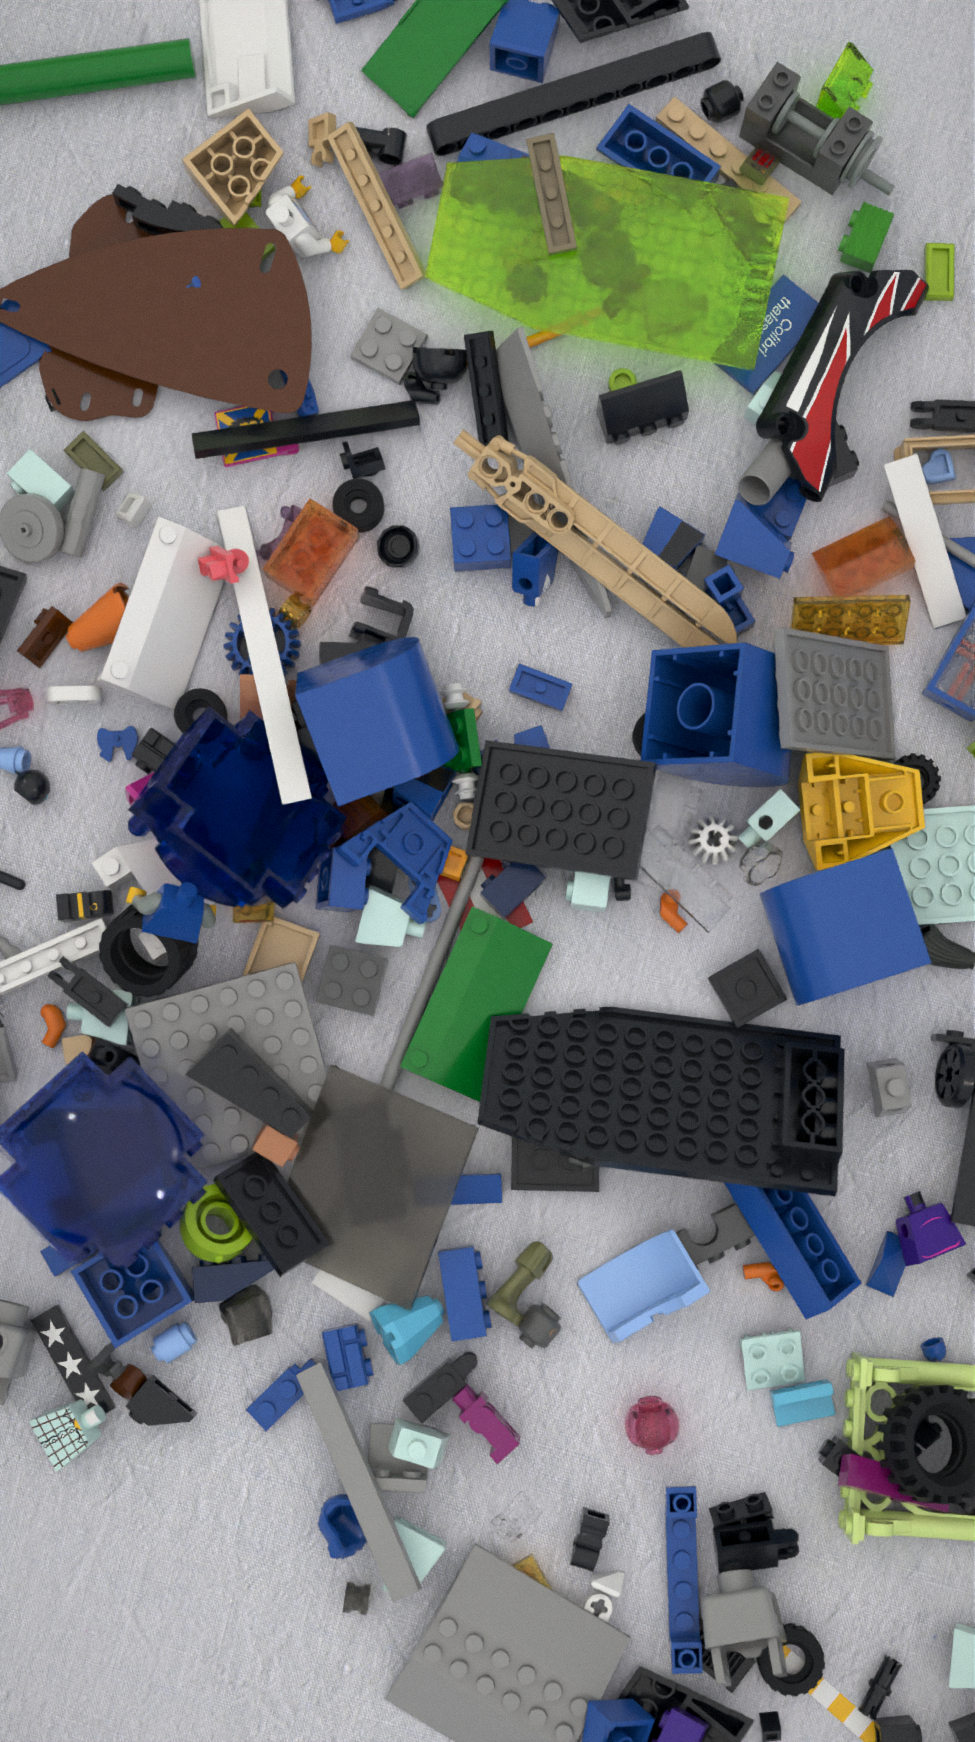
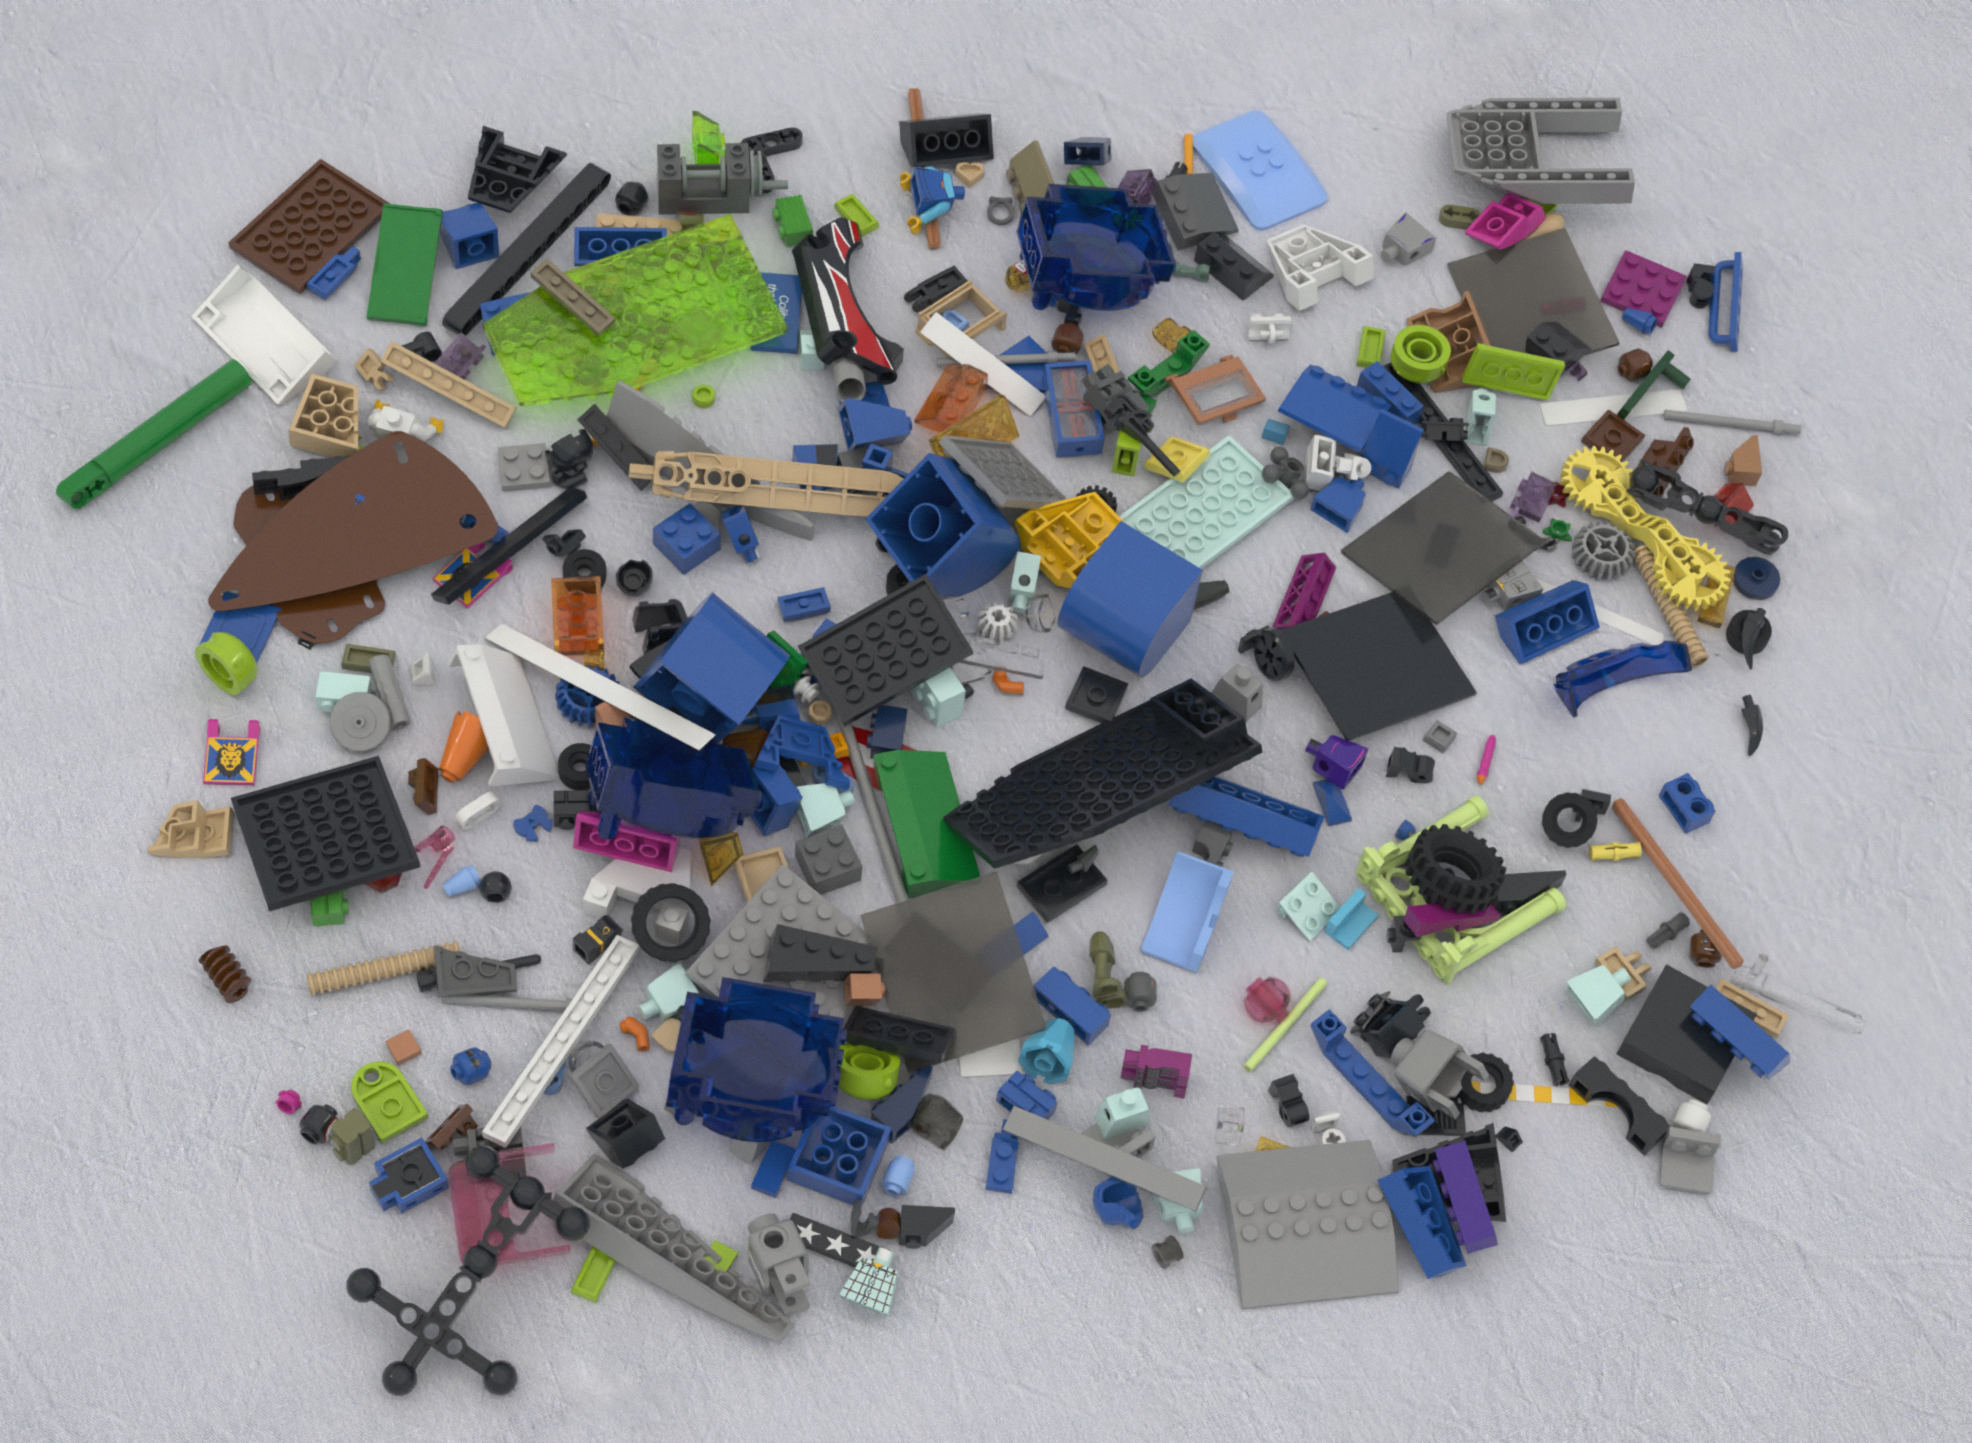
camera: 50 degrees left, 25 degrees down
(90, 993) = (650, 979): black hinge -> none
(173, 911) = (677, 864): blue torso -> none
(223, 564) = (522, 655): coral hips -> none
(290, 515) = (546, 630): clear purple piece -> none
(440, 1386) = (1106, 1070): black hinge -> none
(643, 408) = (732, 397): black slope -> none
(646, 1459) = (1286, 1023): none -> yellowish green piece
(766, 1272) = (1259, 858): orange arm -> none
(901, 128) = (758, 143): none -> black beam

